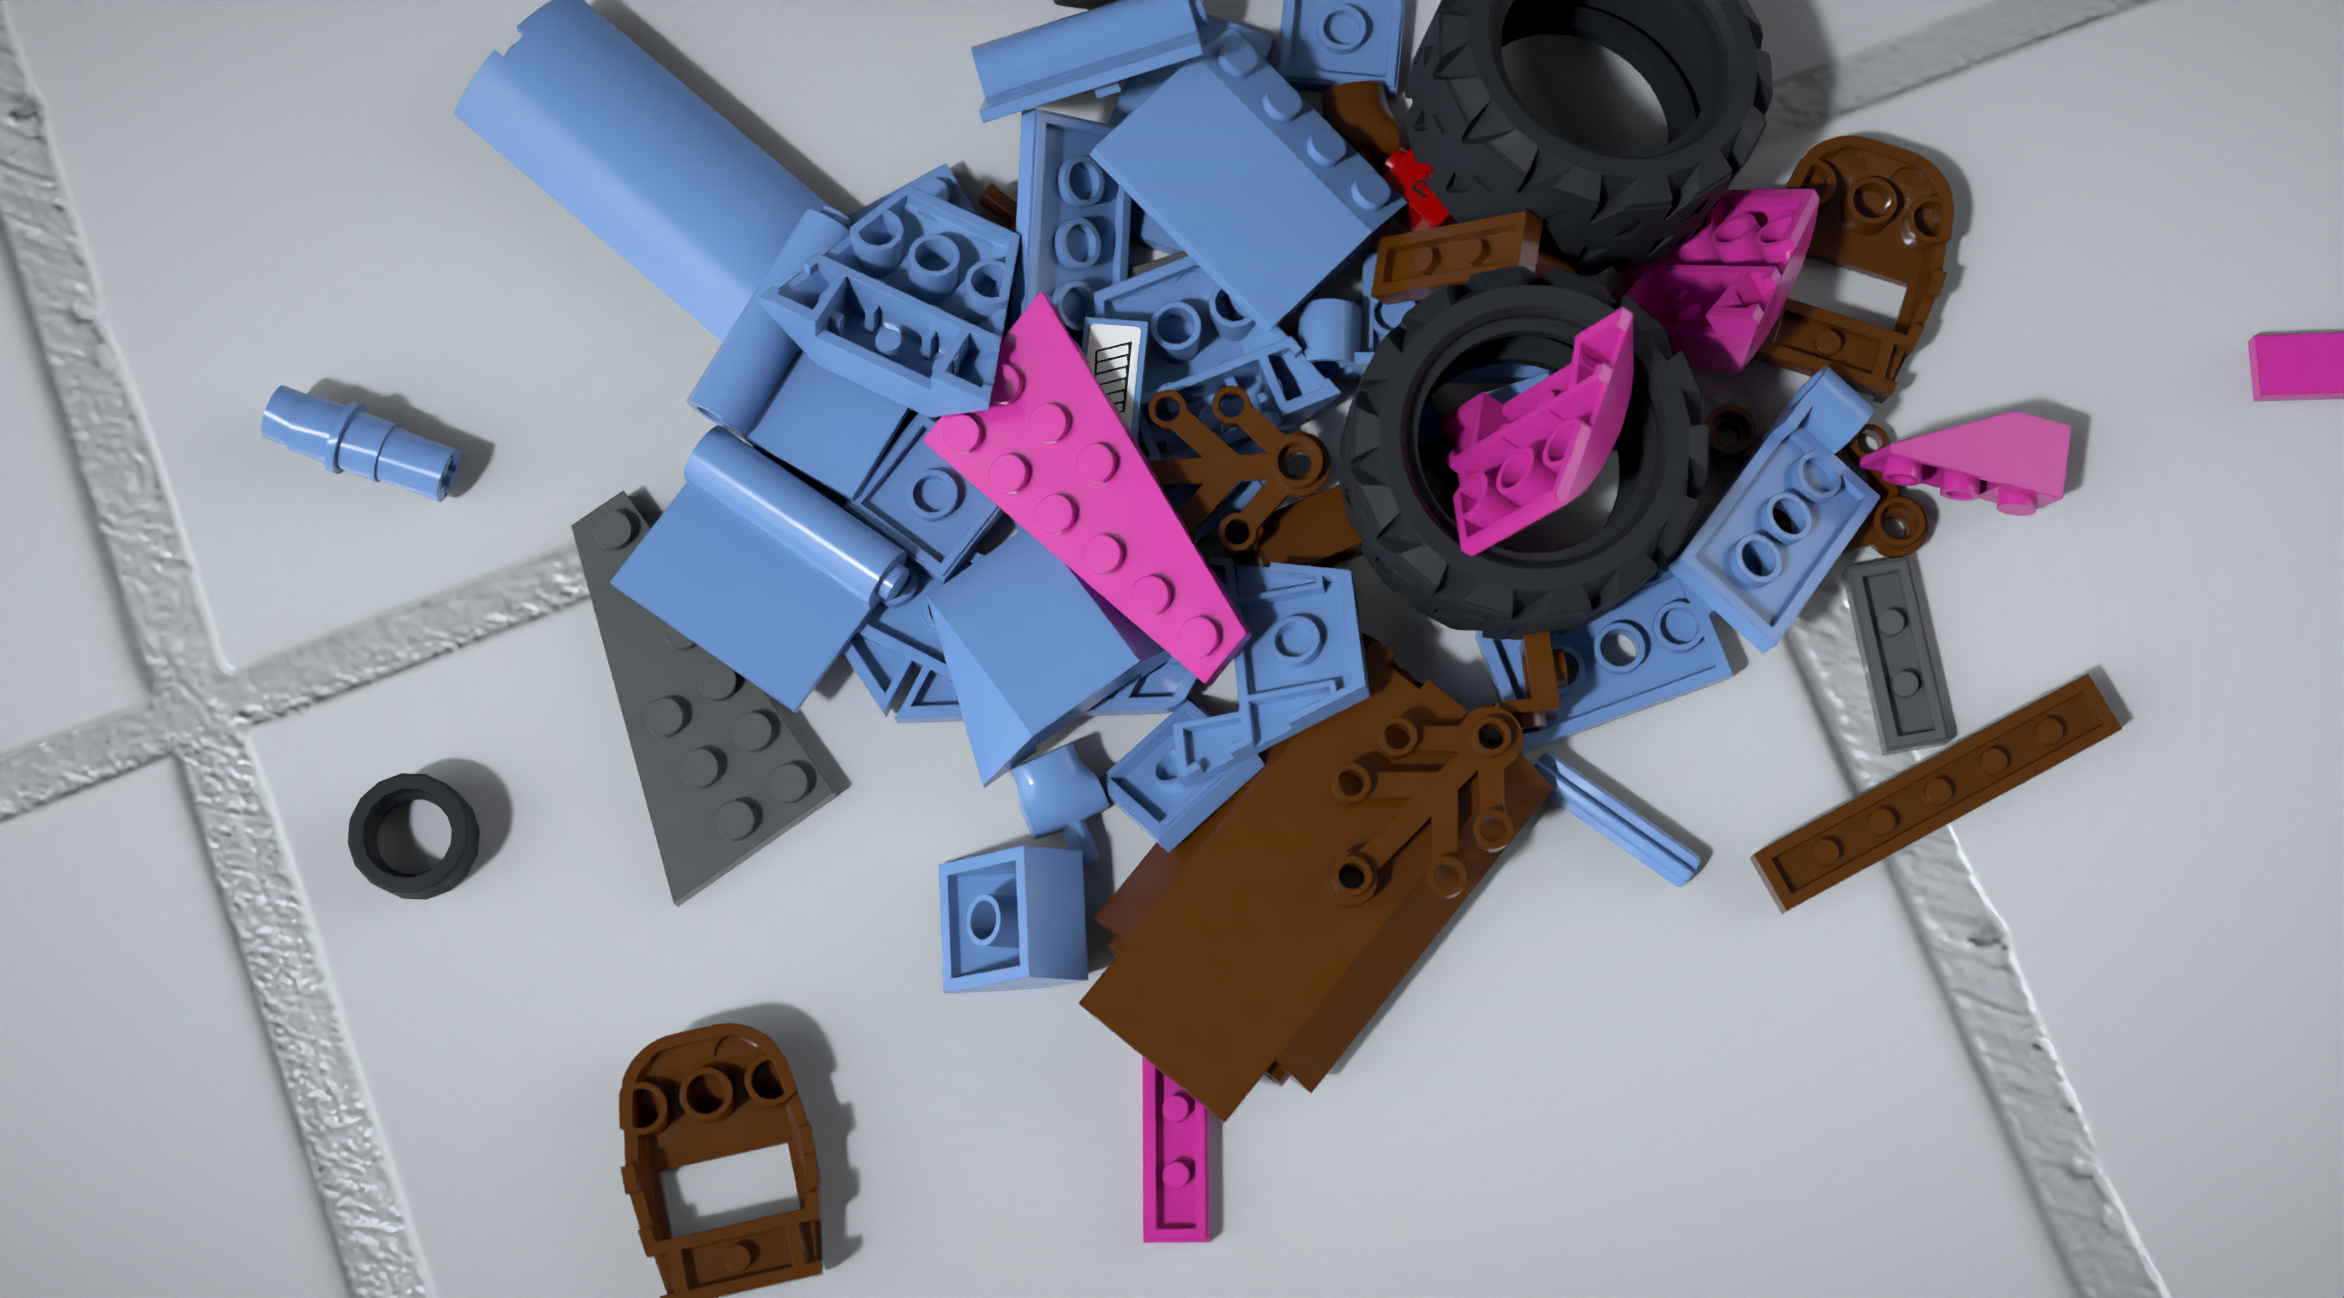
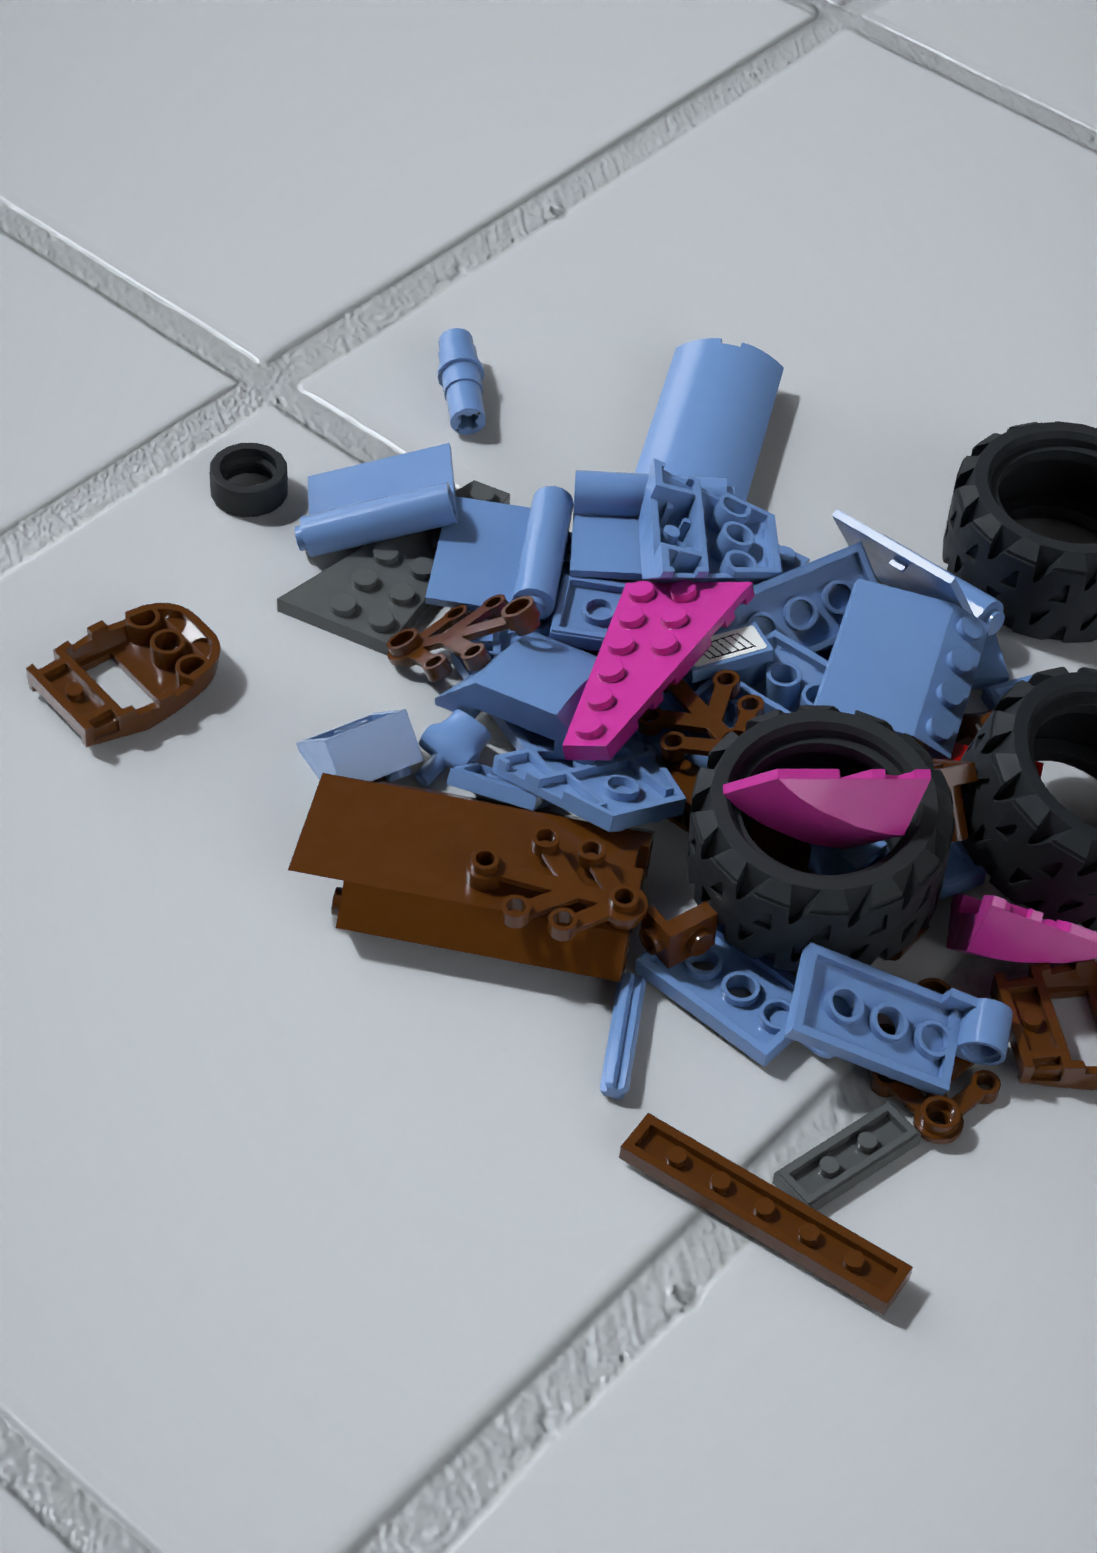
camera: 55 degrees right, 30 degrees down
(562, 678) = (379, 501): none -> medium blue door
(894, 701) = (412, 648): none -> reddish brown plant
(1173, 1162) = (254, 892): dark pink tile -> none
(1998, 459) = (1024, 1141): dark pink slope -> none

